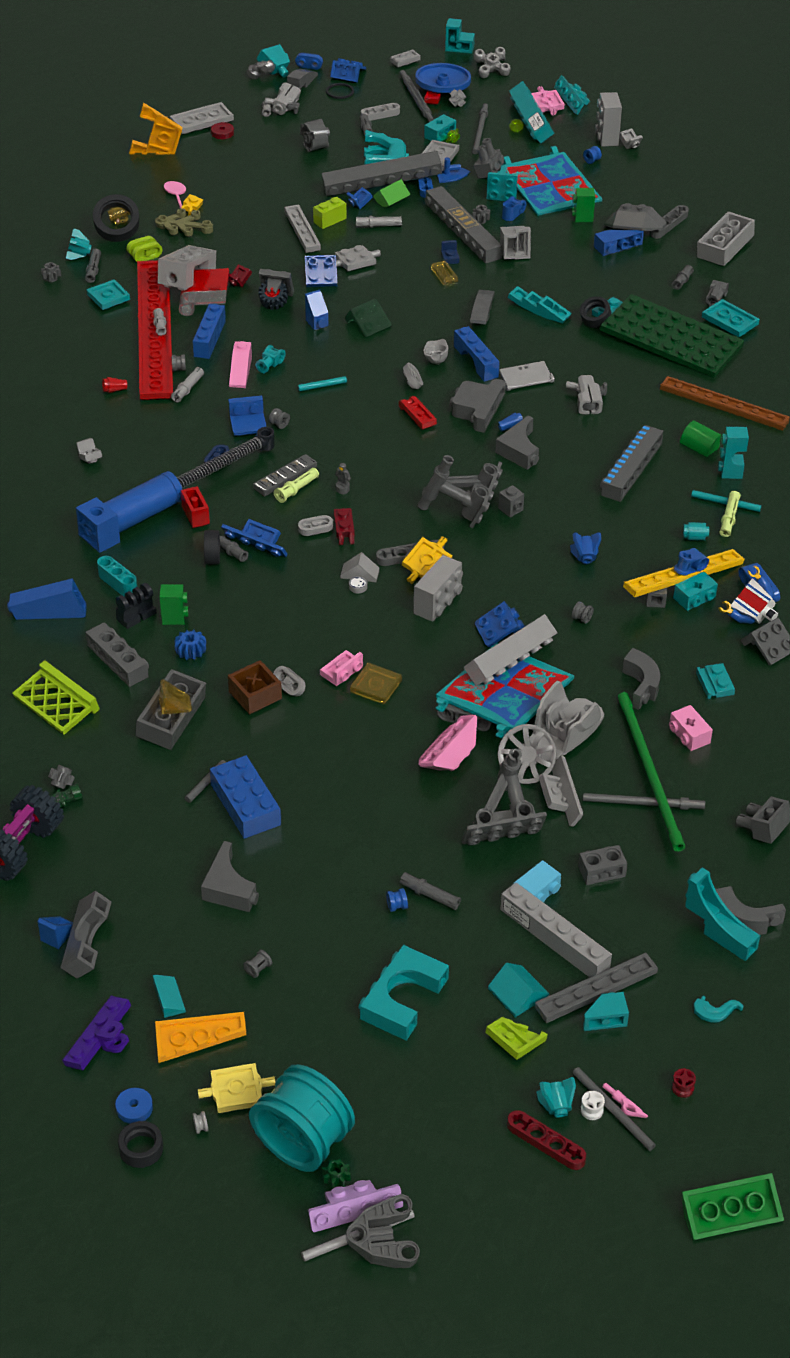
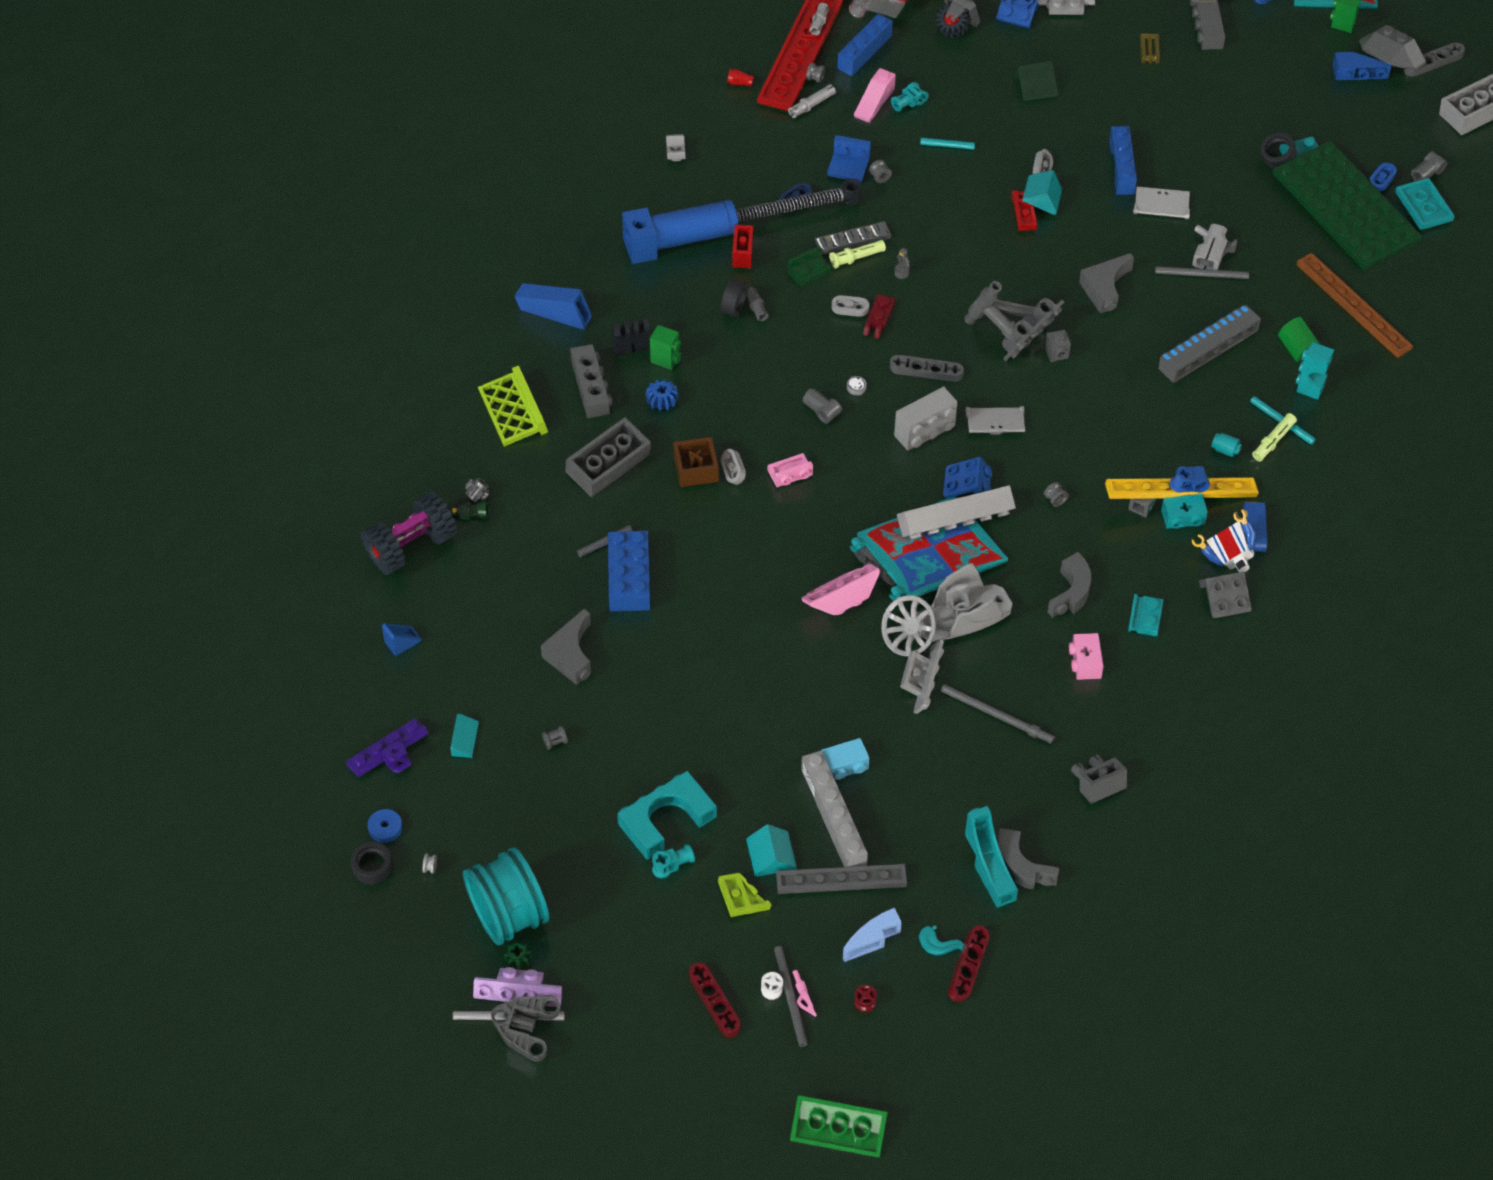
camera: 25 degrees right, 10 degrees up
(79, 954) = (408, 665): dark grey arch -> none
(116, 575) = (632, 296): teal beam -> none
(173, 699) = (608, 450): clear yellow slope -> none
(192, 1034) = (467, 781): light orange wing -> none
(236, 1087) = (475, 844): light yellow plate -> none
(257, 534) = (789, 297): blue bracket -> none
(260, 506) = (808, 266): none -> dark green bracket
(316, 310) = (984, 55): blue slope -> none
(343, 610) = (824, 408): none -> dark grey piece
(360, 566) = (869, 369): light grey slope -> none
(376, 683) = (815, 497): clear yellow tile -> none
(397, 900) = (709, 724): blue wheel -> none
(421, 886) = (740, 721): dark grey pin -> none
(423, 557) = (933, 378): yellow plate -> none
(425, 393) = (1043, 191): none -> teal slope
(430, 1031) = (671, 860): none -> teal connector
(436, 351) = (1082, 143): light grey piece -> none
(449, 252) = (1168, 25): dark blue bracket -> none
(477, 402) = (1092, 218): dark grey brick -> none
(482, 307) = (1162, 104): dark grey slope -> none
(493, 573) = (995, 420): none -> light grey door
(510, 421) = (1111, 252): blue cone -> none
(511, 823) = (849, 686): dark grey plate -> none
(515, 242) = (1242, 36): light grey plate -> none
(540, 306) = (1227, 123): teal slope -> none
(557, 1096) = (743, 965): teal brick -> none
(585, 547) = (1101, 424): blue brick -> none
(591, 415) = (1202, 272): none -> dark grey piece
(602, 864) = (917, 767): dark grey brick -> none
(607, 1012) = (835, 905): teal slope -> none
(657, 1023) = (872, 935): none -> light blue slope
(674, 834) = (1000, 760): green piece -> none
(682, 277) = (1404, 135): dark grey pin -> none
(686, 307) = (1383, 176): none -> blue plate
(759, 1039) = (966, 962): none -> dark red beam

